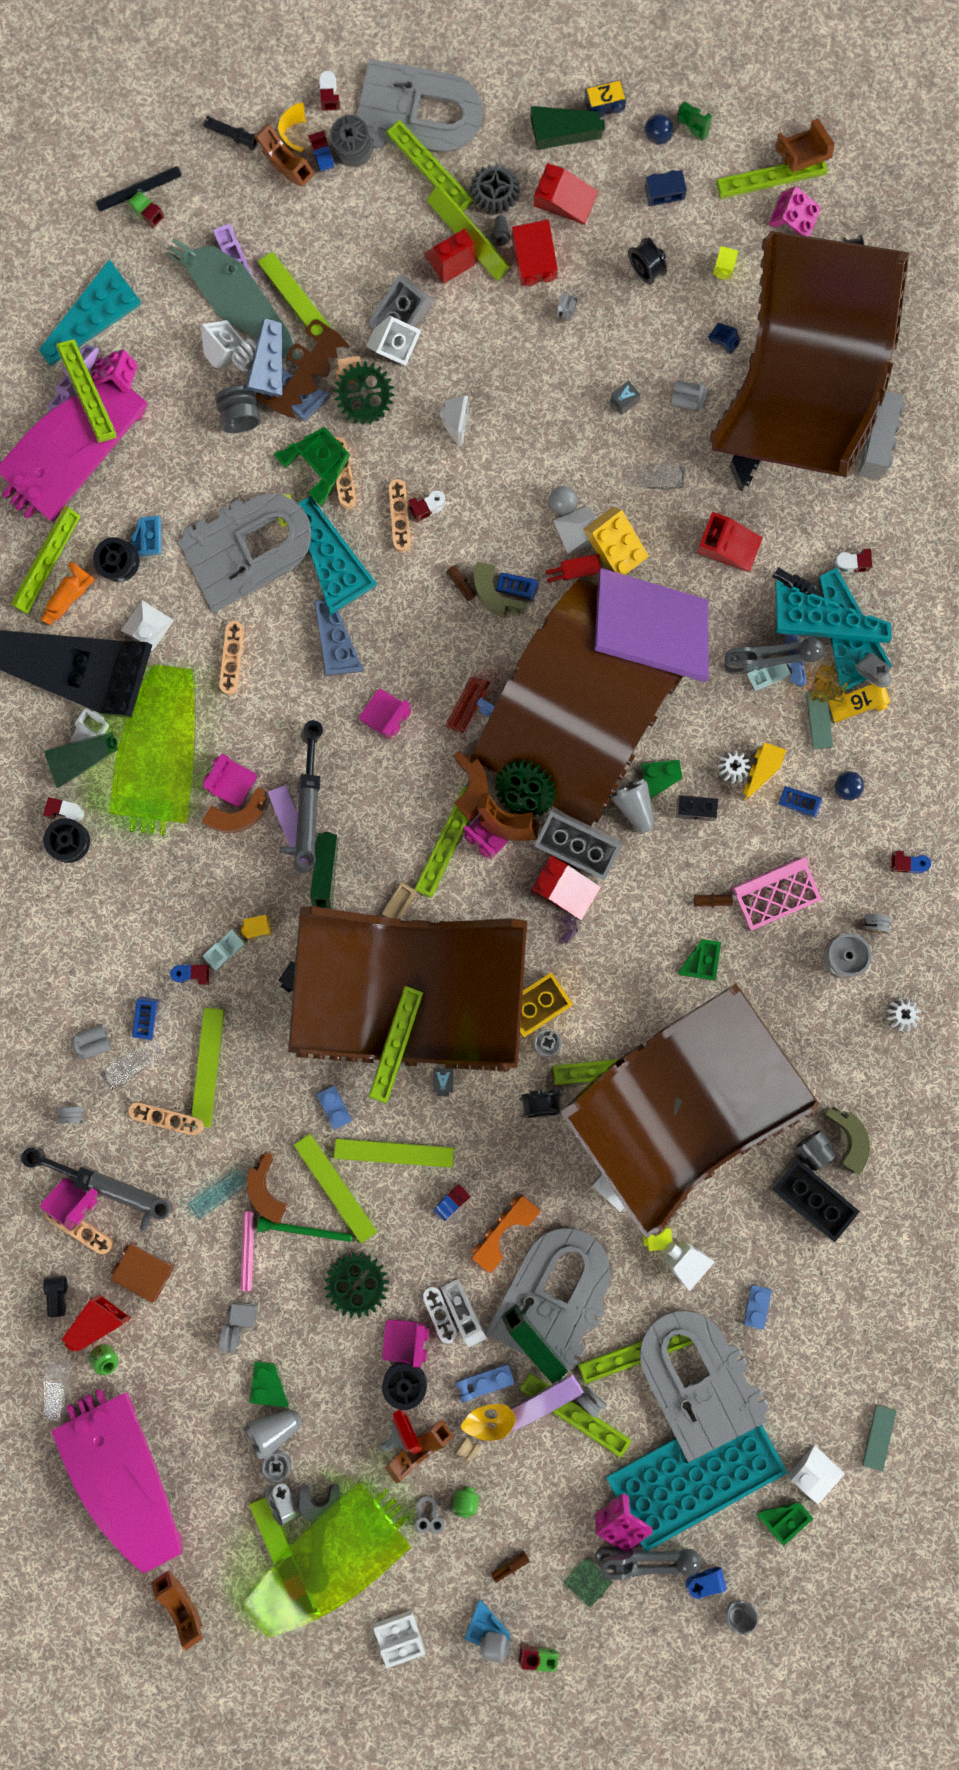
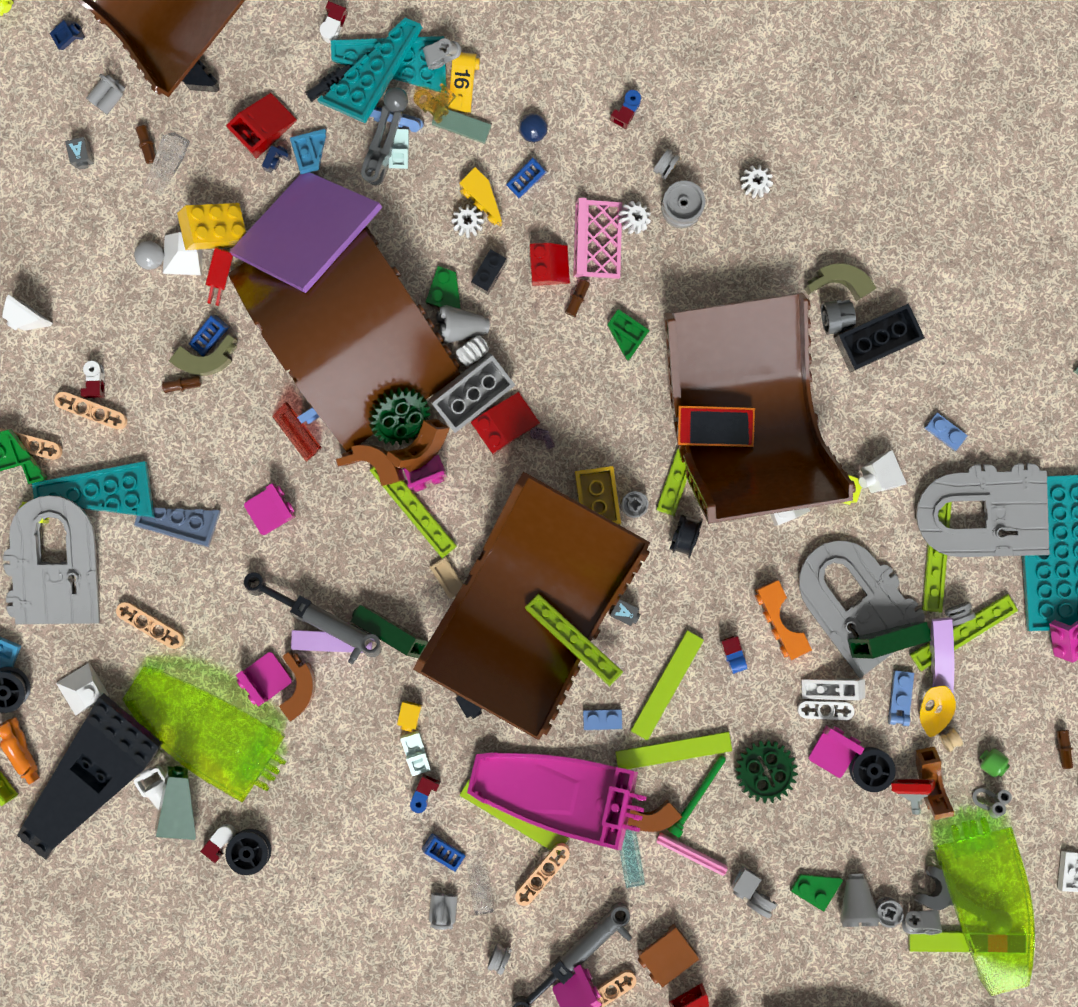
camera: 65 degrees left, 5 degrees up
(246, 1099) = (559, 794): none -> dark pink windscreen
(617, 826) = (472, 350): none -> white gear
(656, 1083) = (716, 426): none -> black slope
(661, 451) = (146, 144): none -> reddish brown axle
(700, 567) = (272, 158): none -> dark blue bracket
(727, 595) = (309, 150): none -> dark azure wing
(731, 859) = (549, 264): none -> red slope
(808, 912) = (629, 220): none -> white gear

